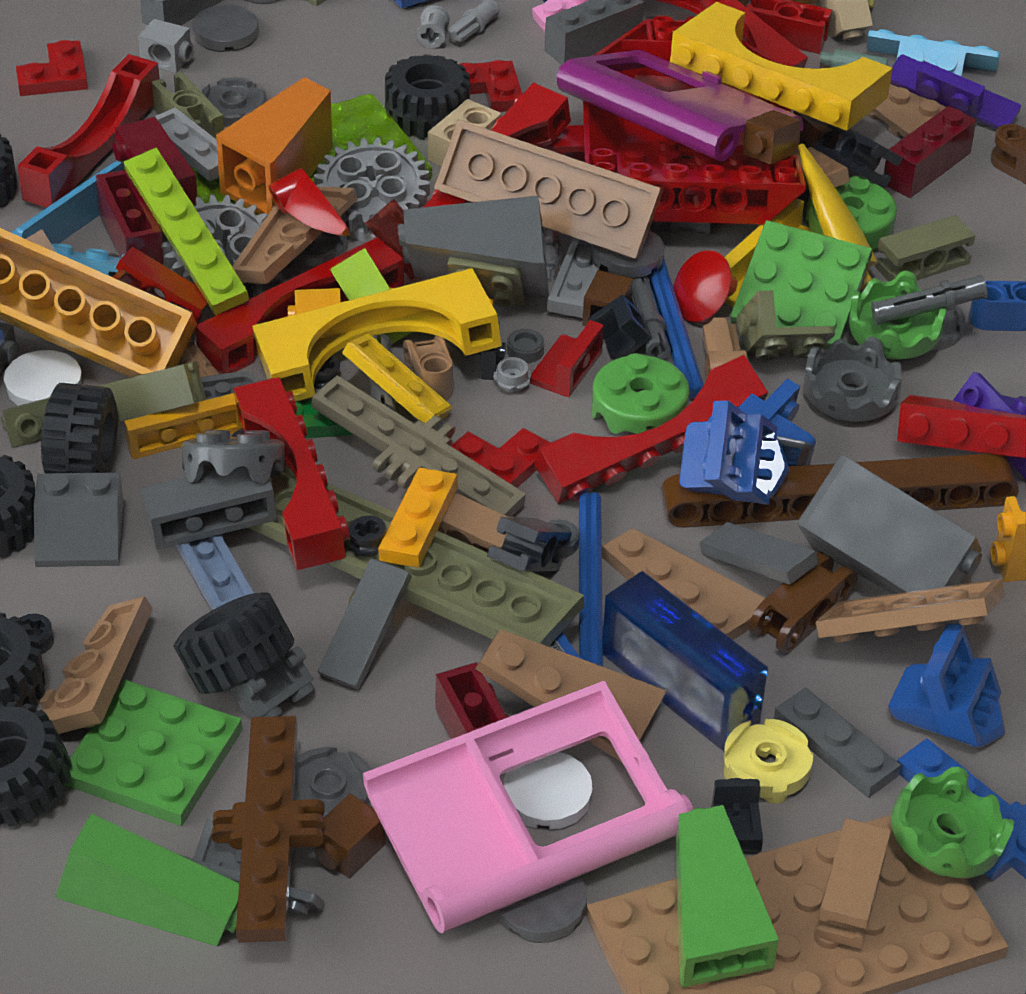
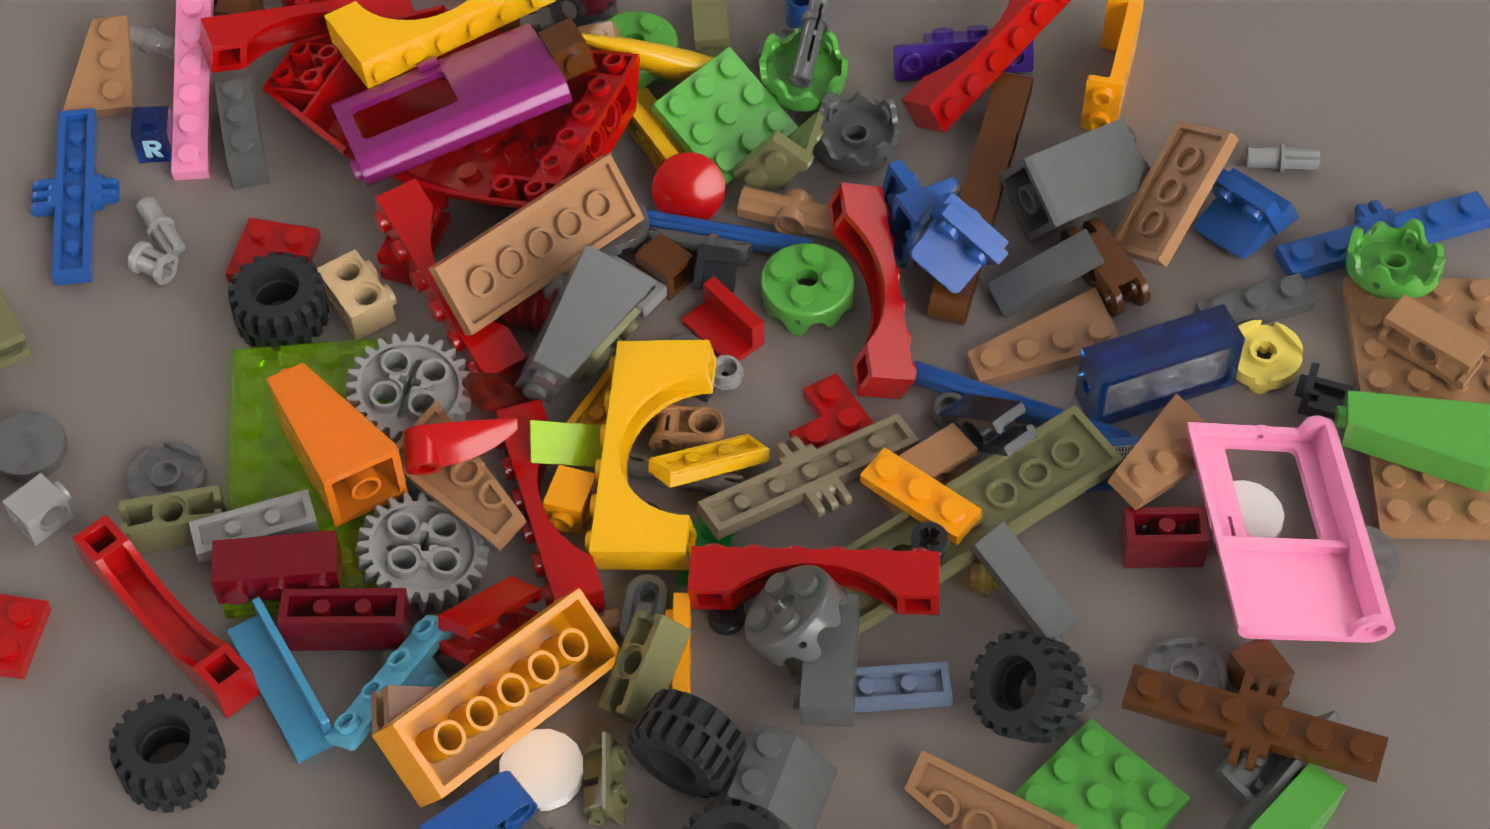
camera: 65 degrees left, 10 degrees up
(186, 231) = (421, 564): lime plate -> none

